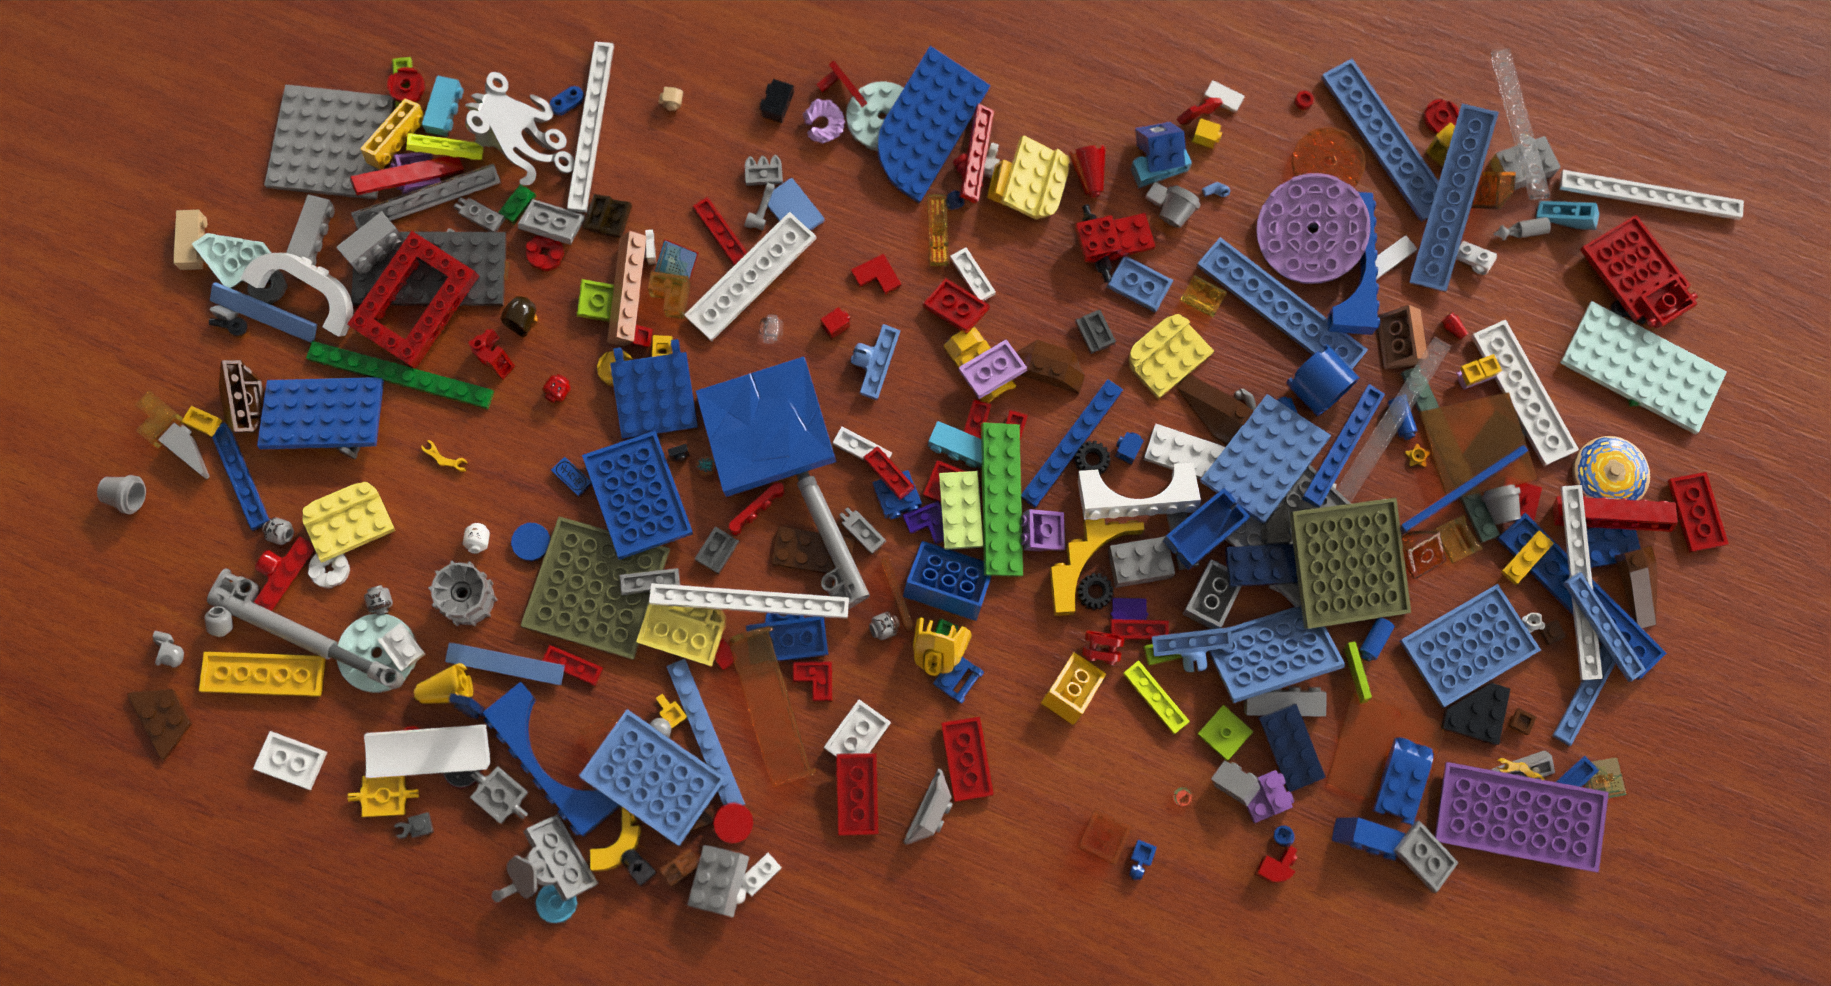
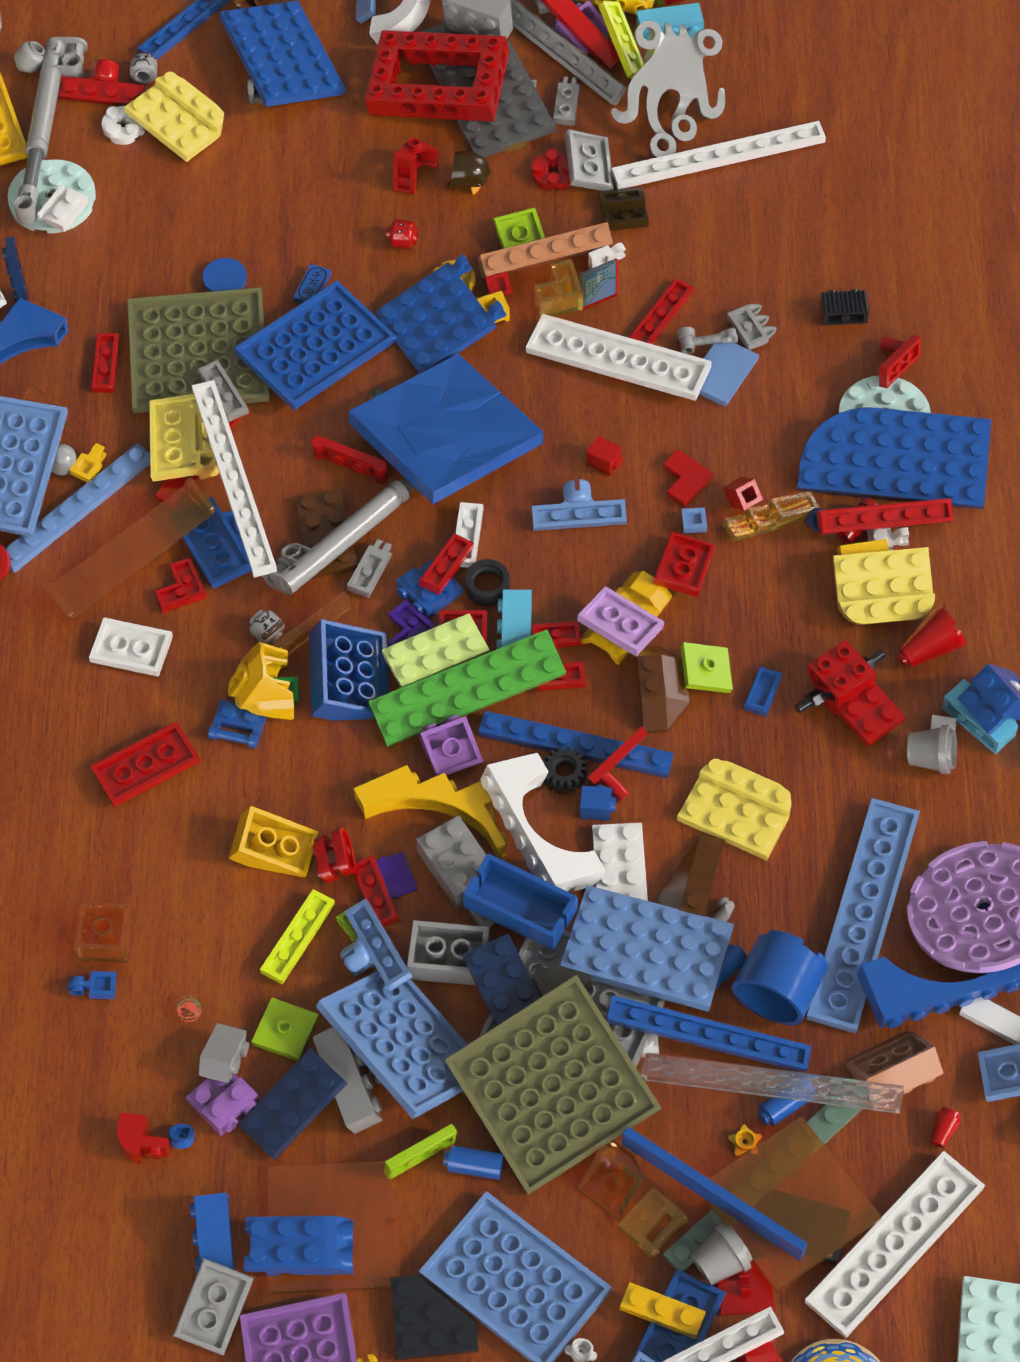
camera: 75 degrees right, 15 degrees down
(378, 599) = (106, 173): light grey head -> none
(400, 375) = (355, 105): green plate -> none
(433, 452) = (285, 162): yellow piece -> none
(440, 686) = (39, 262): yellow cone -> none
(453, 580) = (137, 232): light grey piece -> none
(476, 538) = (206, 227): white head -> none
(505, 663) = (82, 303): medium blue tile -> none
(517, 204) = (597, 126): green plate -> none
(568, 102) = (736, 124): blue plate -> none
(671, 98) = (790, 211): tan plate -> none
(679, 453) = (381, 366): black plate -> none
(716, 550) = (286, 441): dark grey plate -> none
(771, 329) = (566, 399): clear head -> none
(832, 113) = (852, 367): lavender piece -> none
(857, 794) = (61, 666): red plate -> none
(910, 465) = (481, 567): none -> black tyre
(914, 240) = (743, 493): none -> red brick
(918, 284) = (694, 520): none -> medium blue plate
(931, 810) = (71, 744): light grey wedge -> none
(972, 274) = (733, 570): white plate -> none
(1048, 327) = (706, 667): none -> lime plate
(1079, 298) = (763, 691): none -> blue tile
(1095, 331) = (727, 719): dark grey plate -> none
(1095, 580) = (400, 815): black tyre -> none
(1106, 428) = (603, 774): none -> red piece
(1140, 283) = (815, 749): medium blue tile -> none
(1203, 296) = (830, 819): clear yellow bracket -> none
(1216, 188) = (986, 790): medium blue arm -> none
(1478, 371) = (890, 1171): yellow hips -> none

